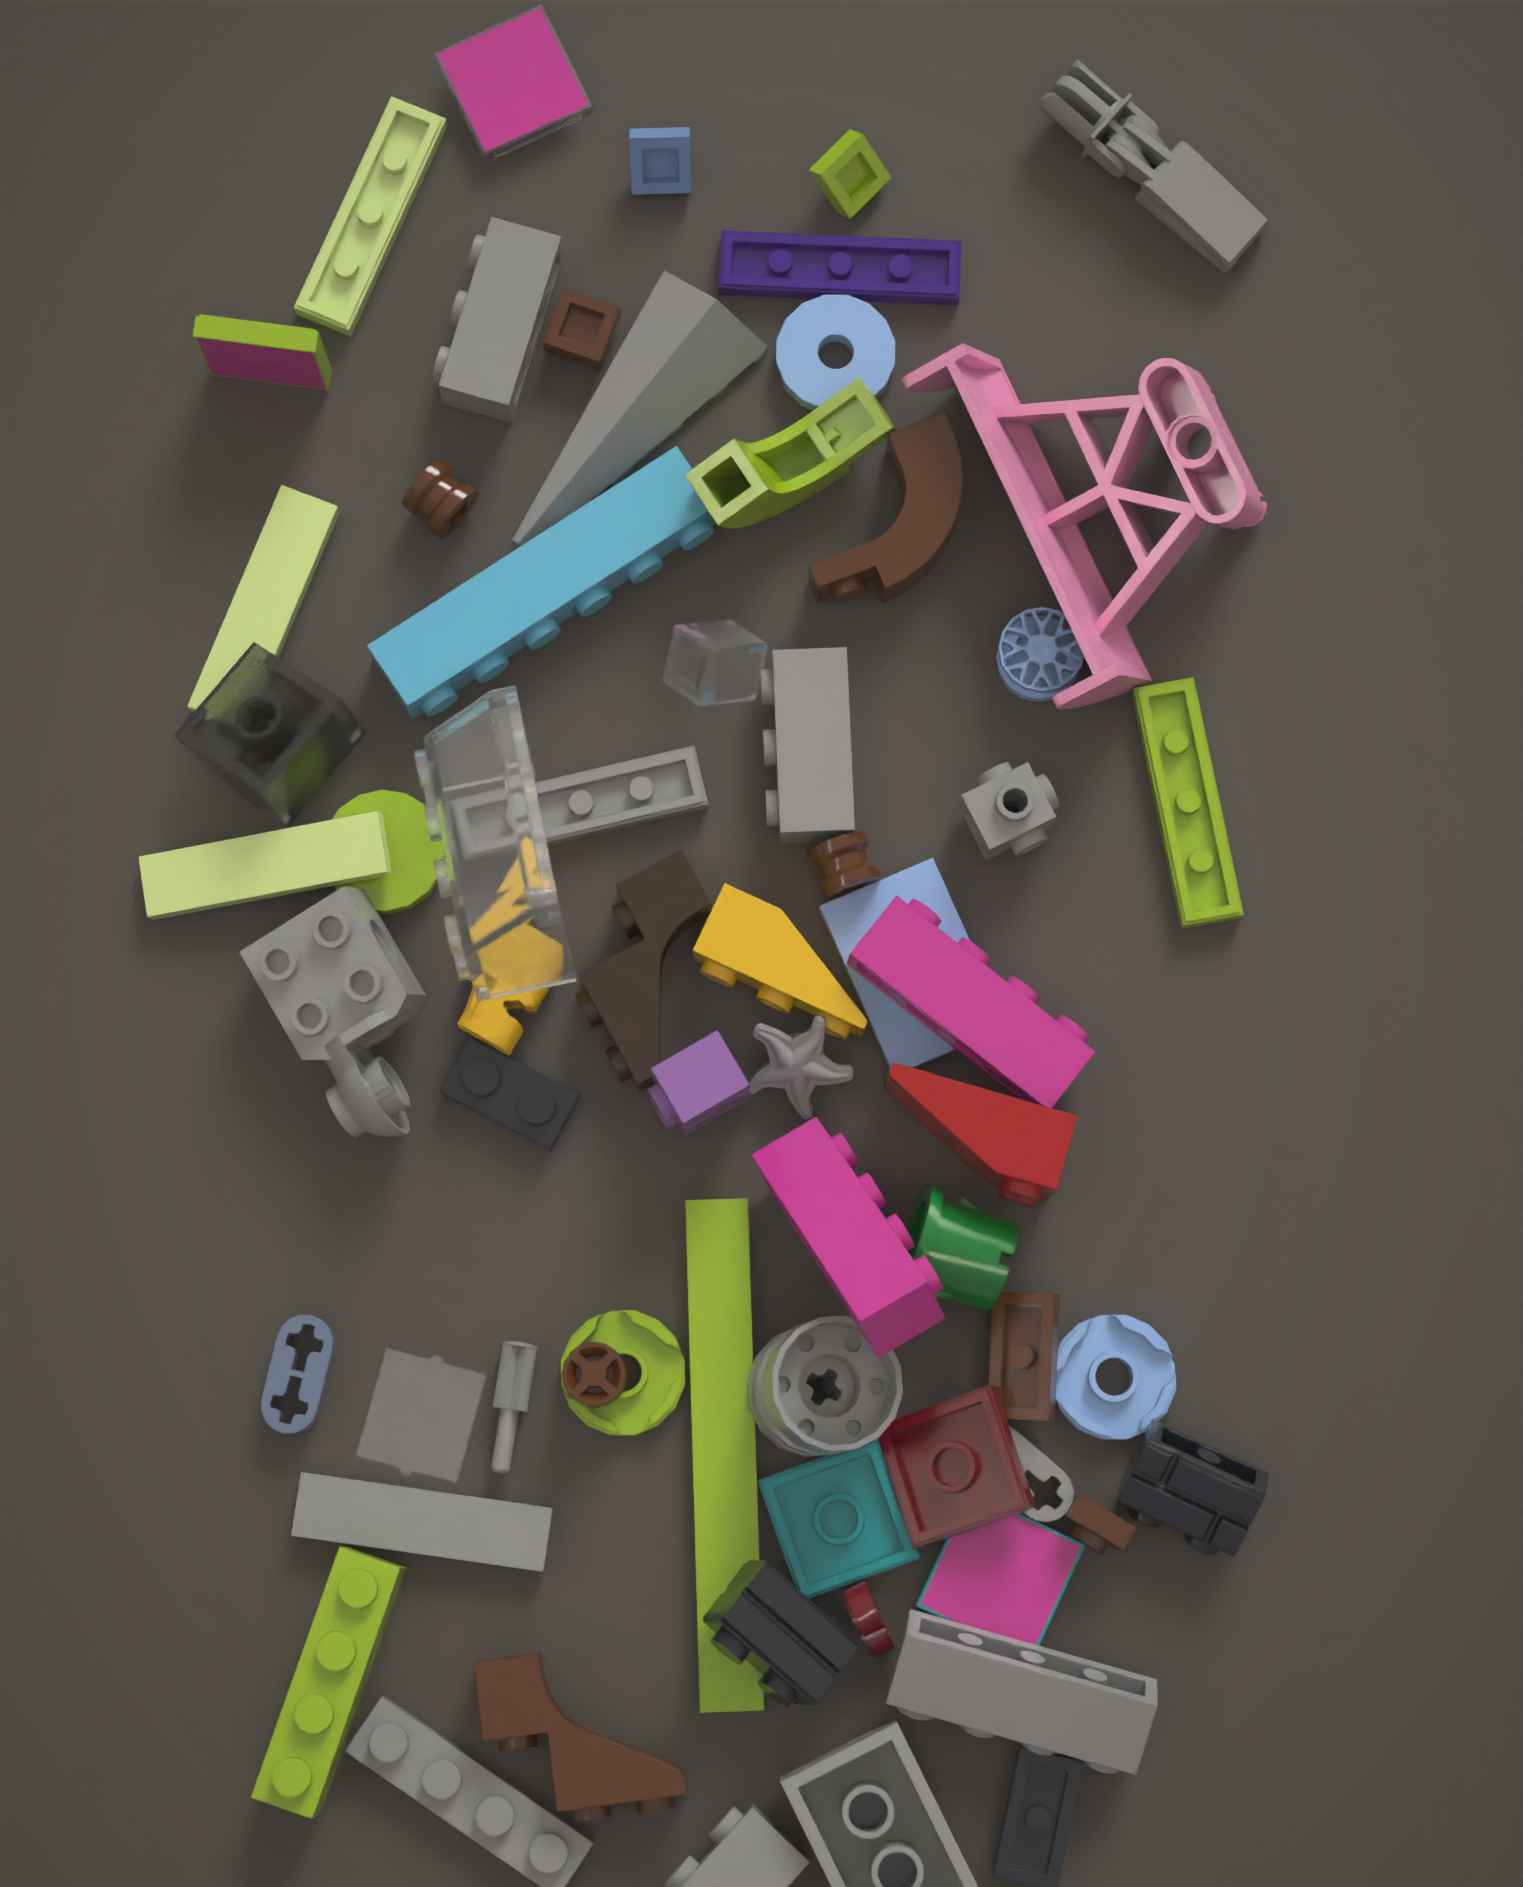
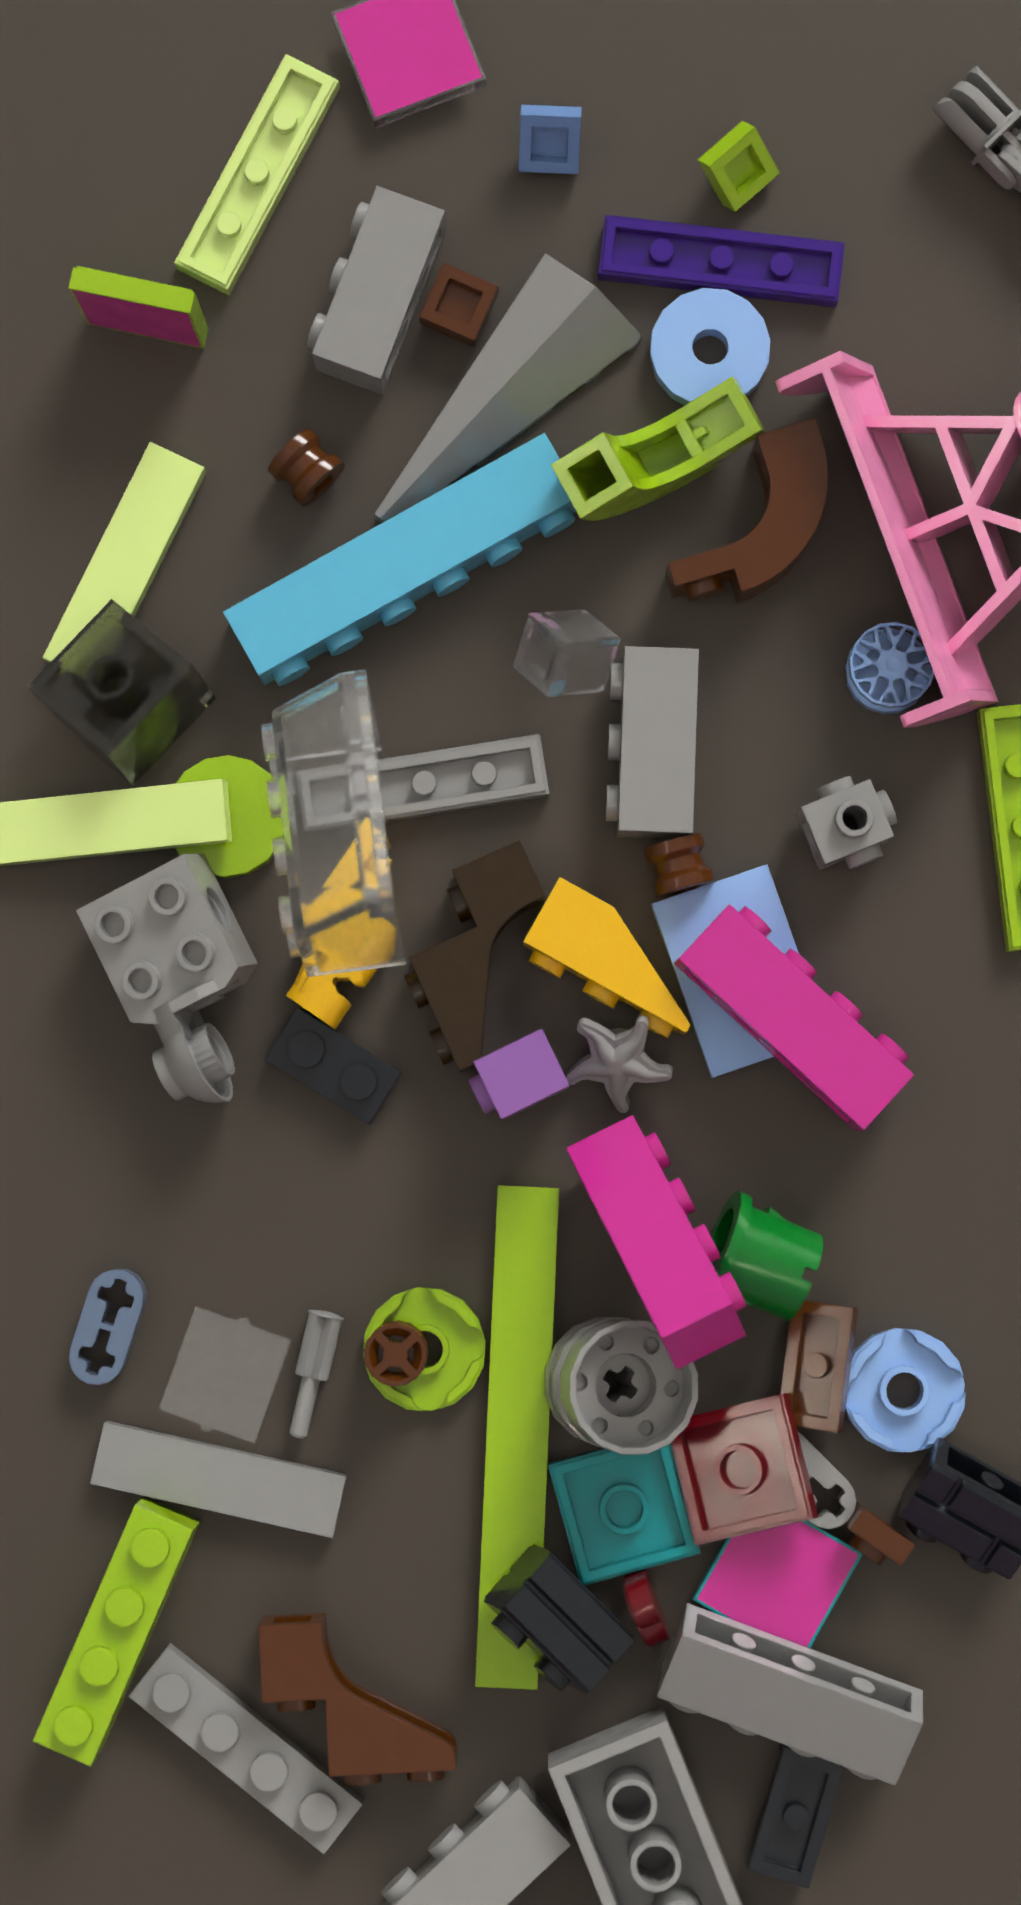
camera: 10 degrees right, 5 degrees up
(994, 1134) = (809, 1150): red slope -> none

